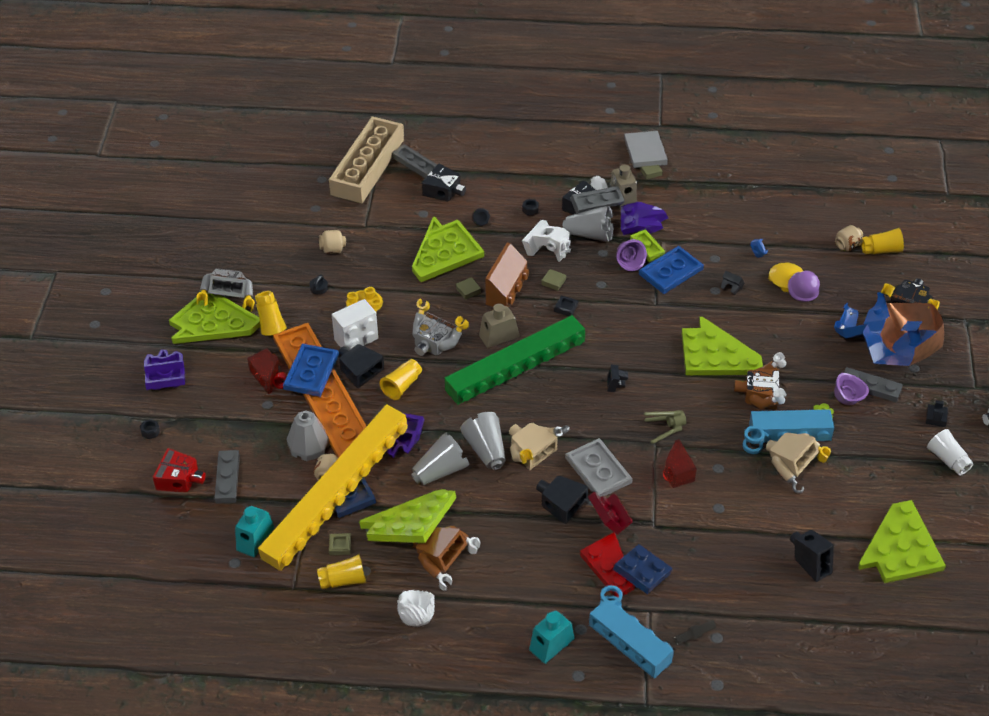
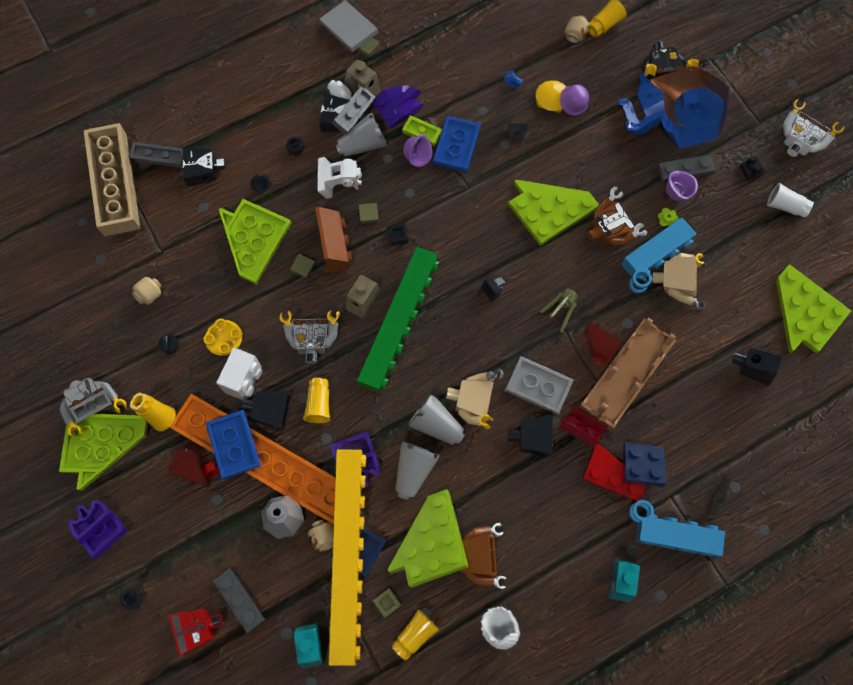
camera: 35 degrees left, 25 degrees up
(690, 497) = (628, 373): none -> medium nougat piece

